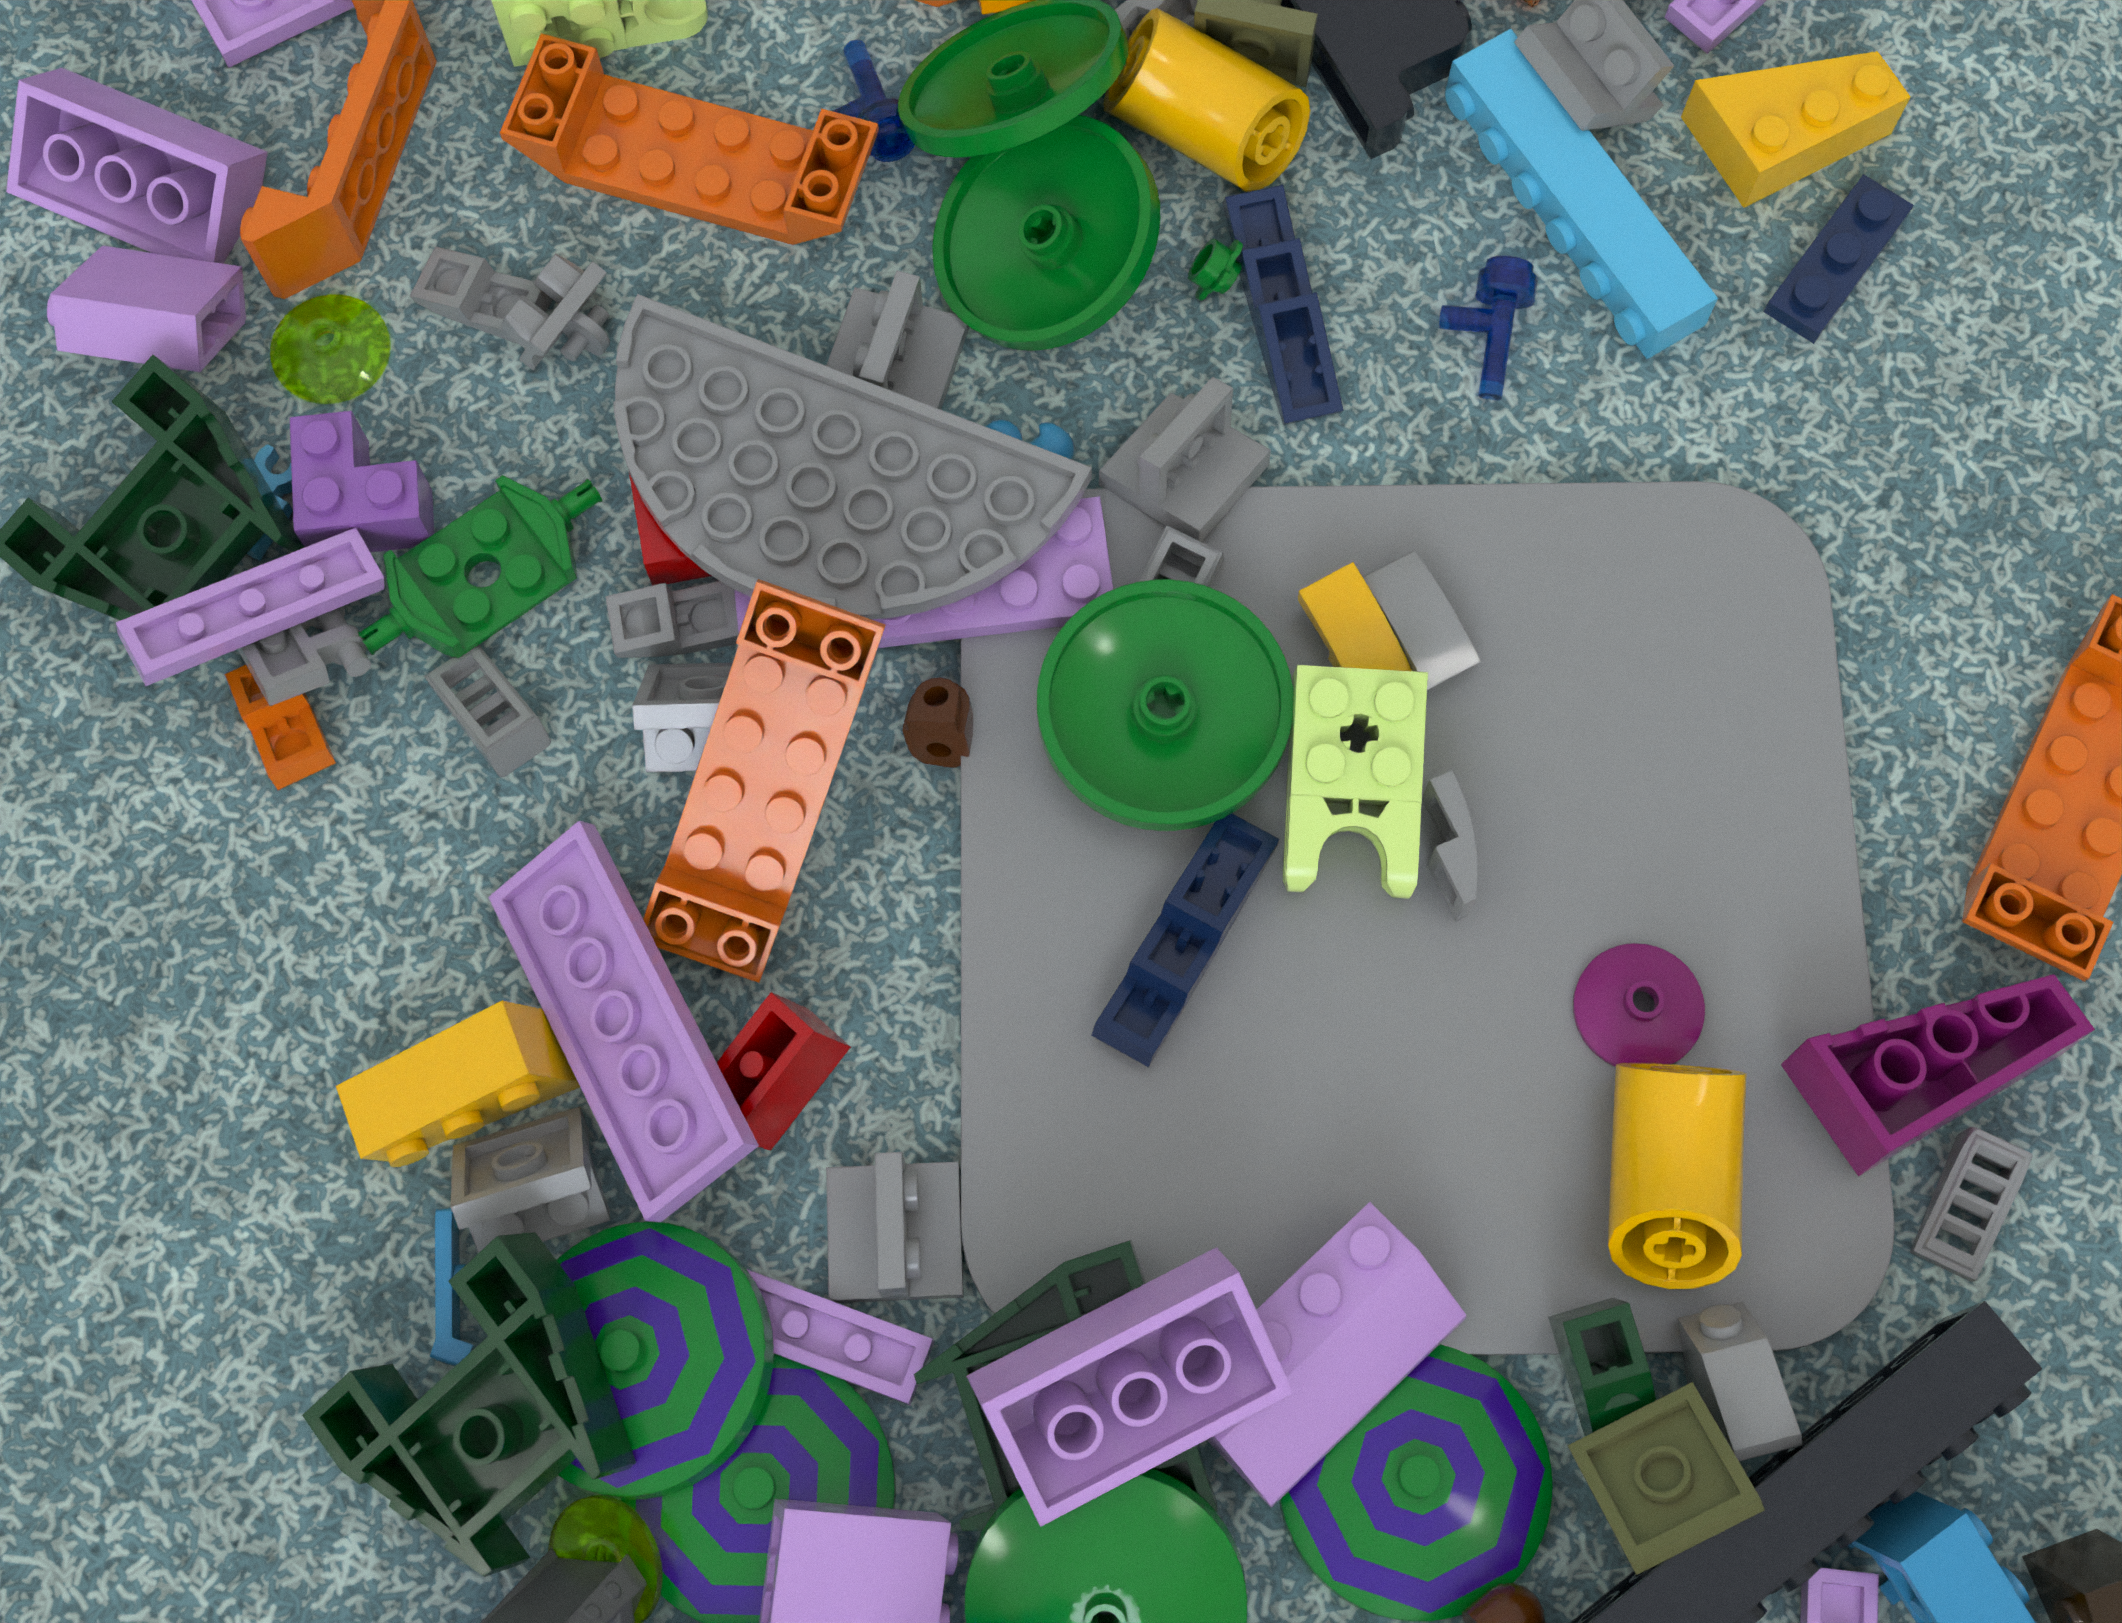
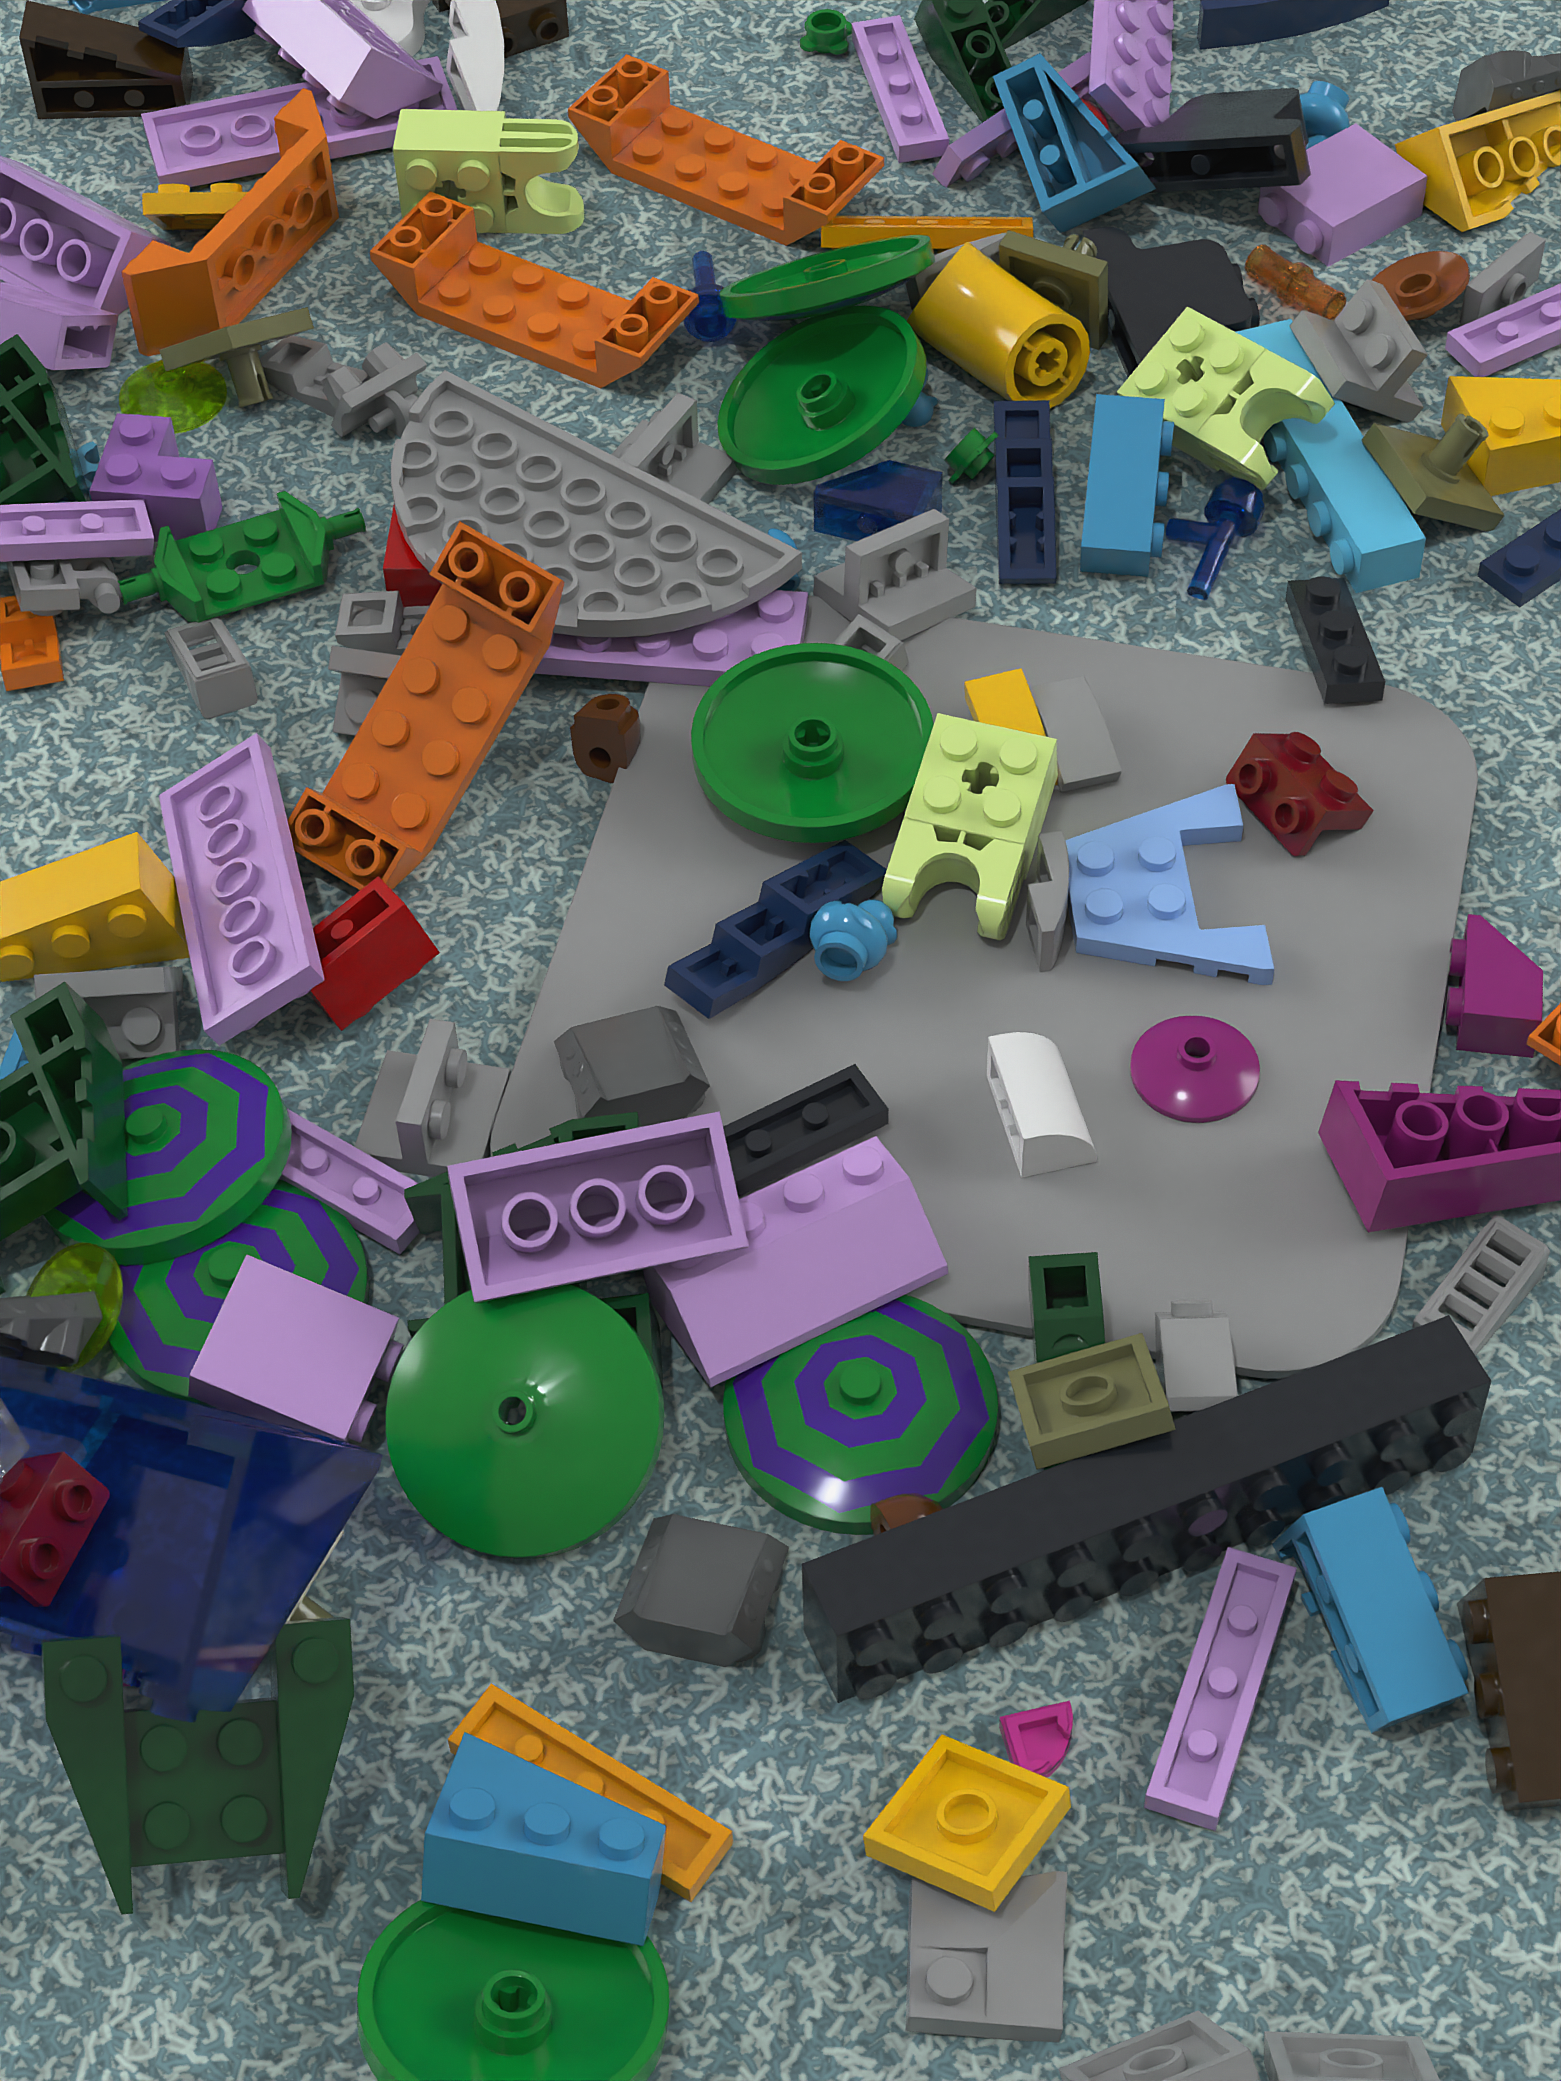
camera: 15 degrees right, 20 degrees down
(271, 105) = (180, 209): none -> yellow plate
(391, 290) = (240, 349): none -> olive tile
(1086, 1144) = (633, 1065): none -> dark grey slope
(1141, 356) = (875, 499): none -> clear blue slope
(1269, 940) = (851, 937): none -> dark azure animal
(1269, 1186) = (802, 1127): none -> black plate
(1393, 288) = (1125, 485): none -> dark azure wedge
(1485, 167) = (1225, 394): none -> yellowish green brick
(1502, 1097) = (1037, 1104): none -> white brick
(1532, 807) = (1135, 893): none -> light blue wing
(1648, 437) = (1335, 640): none -> black plate
(1661, 648) = (1295, 790): none -> dark red bracket
(1677, 1173) = (1181, 1173): yellow brick -> none
(1703, 203) = (1435, 473): none -> olive tile
(1909, 849) = (1497, 992): none -> magenta slope

